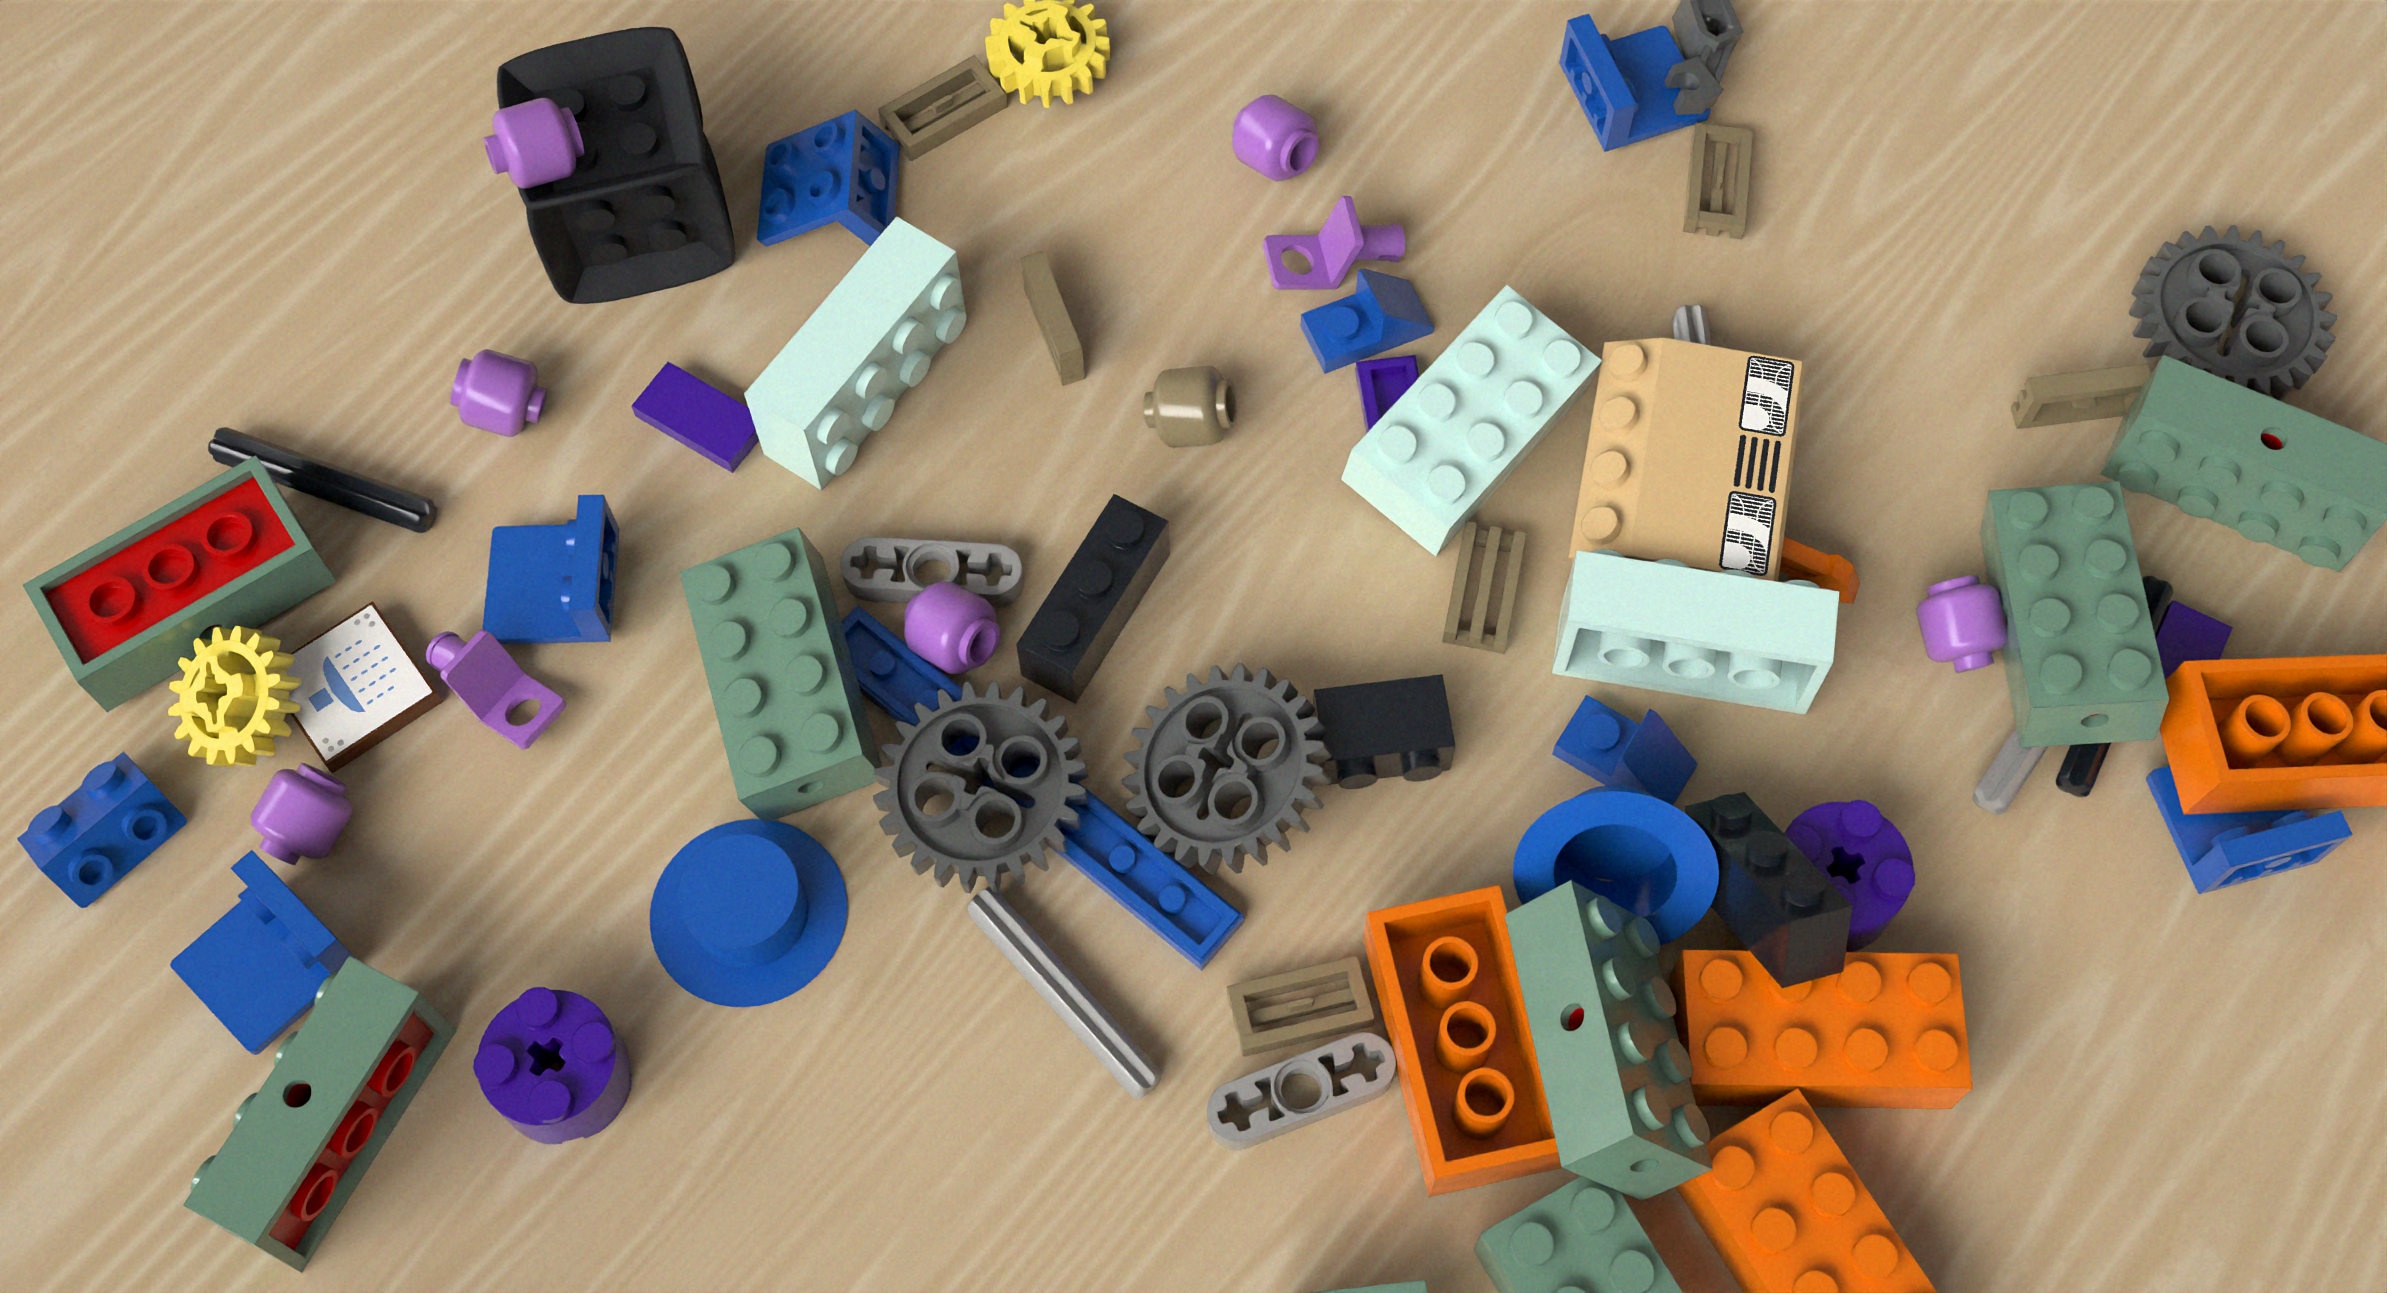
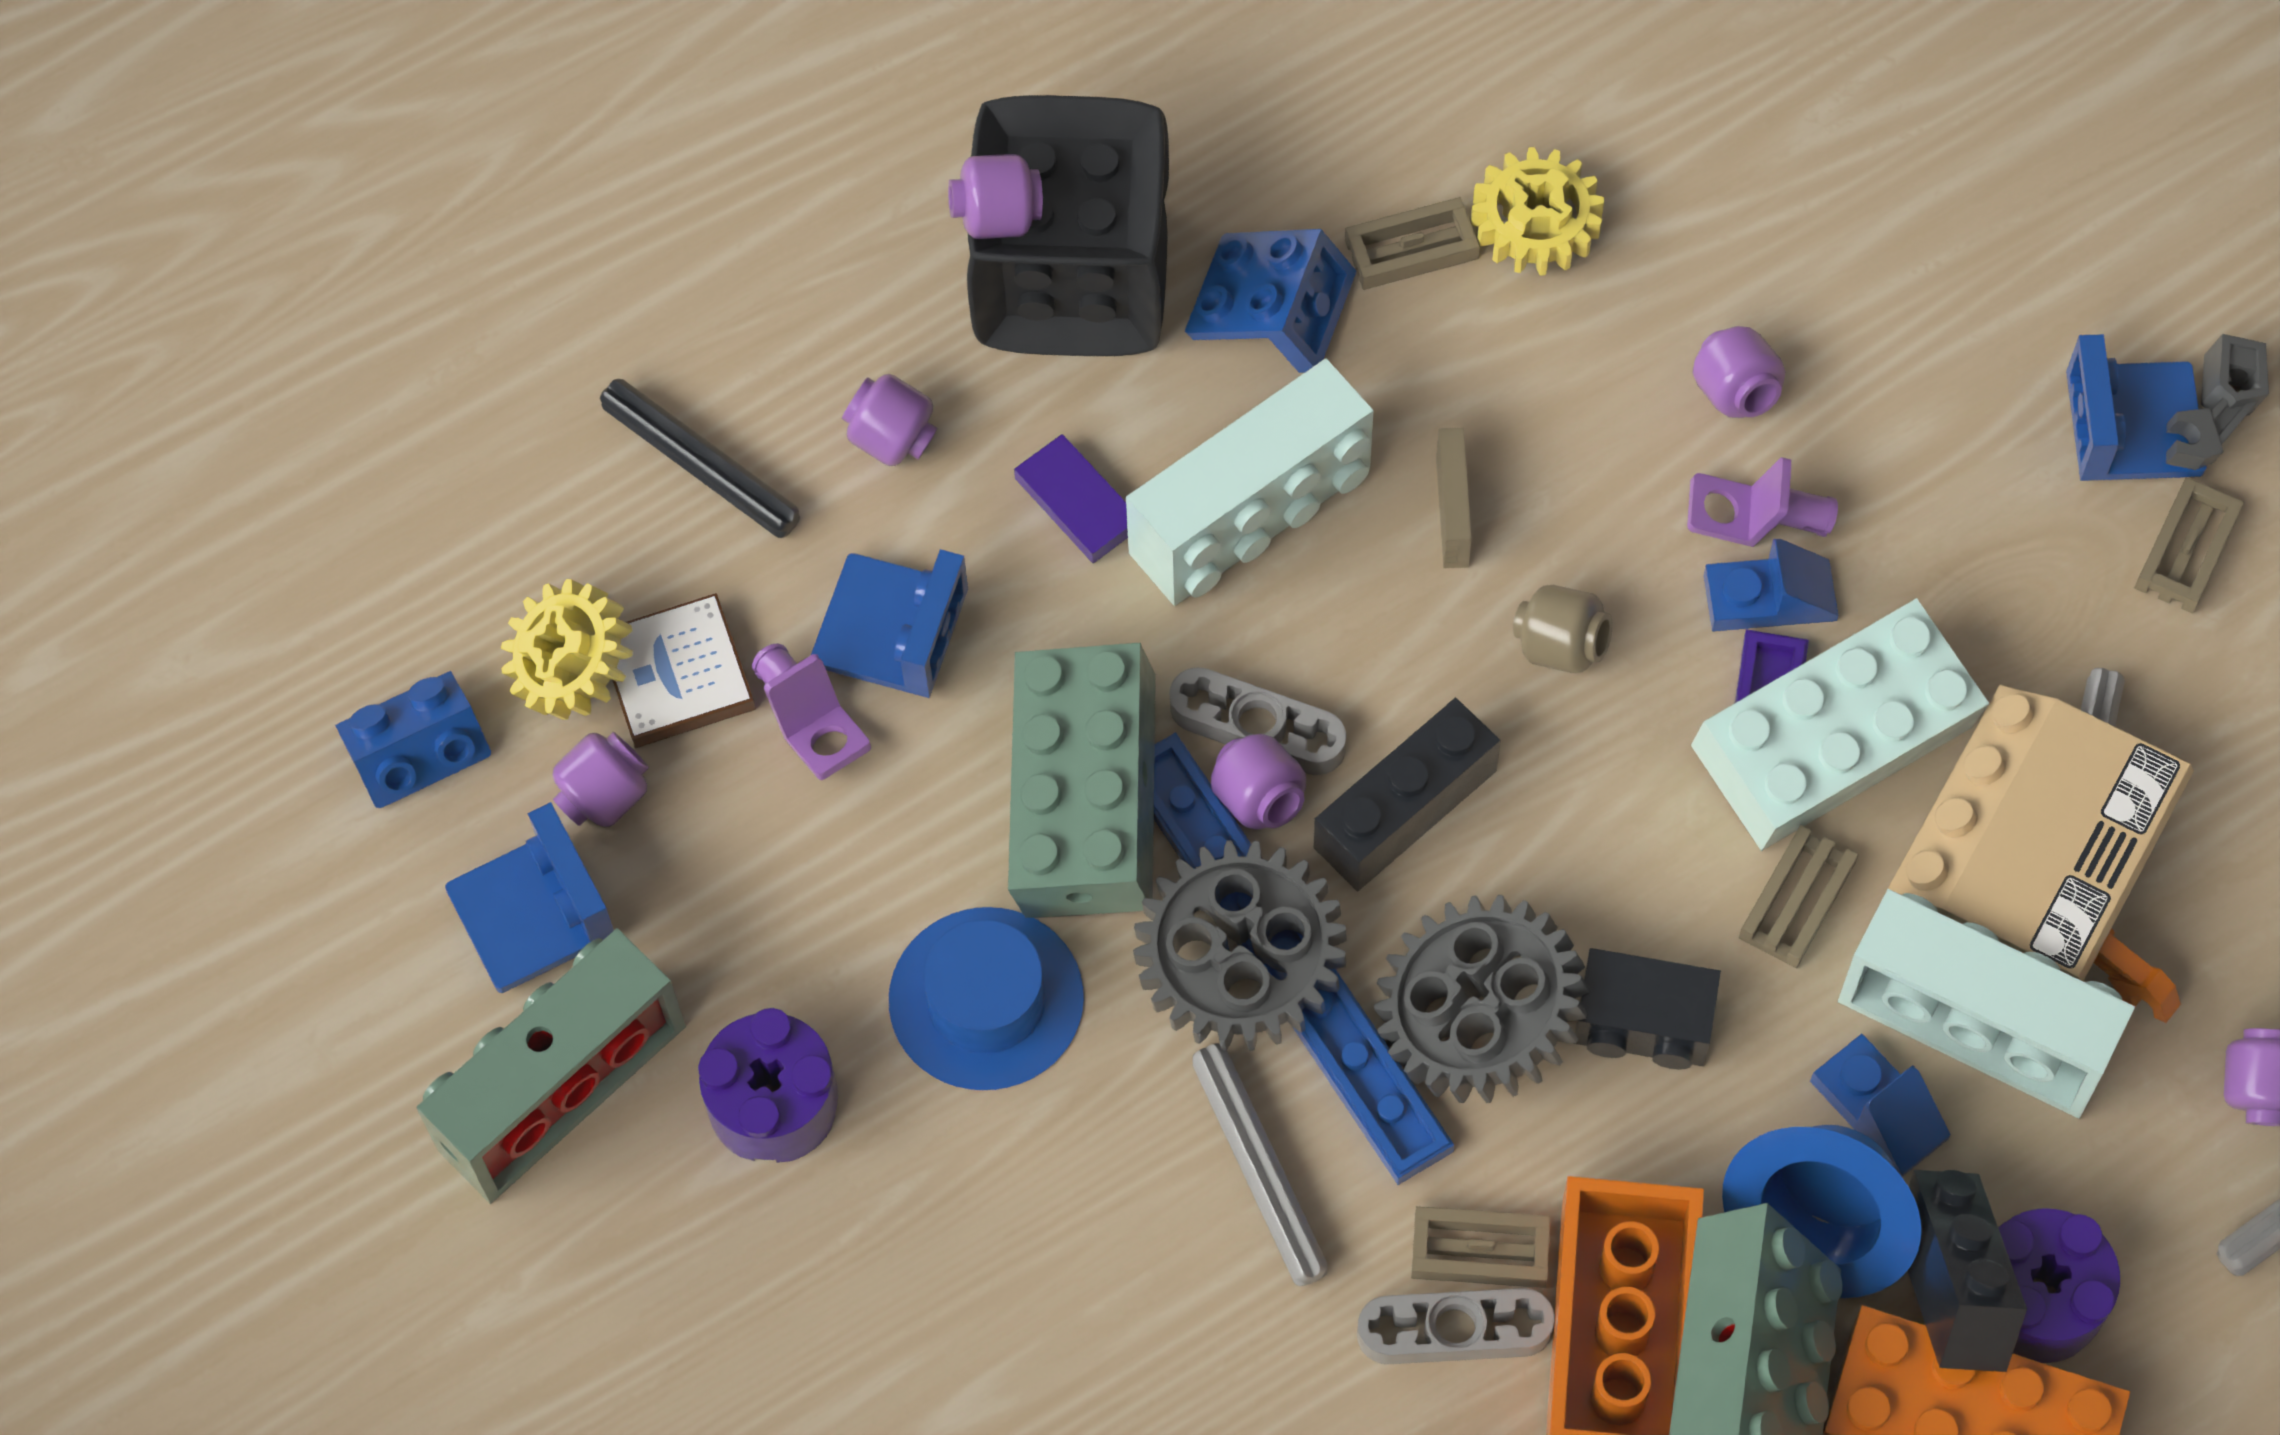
camera: 20 degrees right, 0 degrees up
(195, 565) = (544, 517): brick -> none

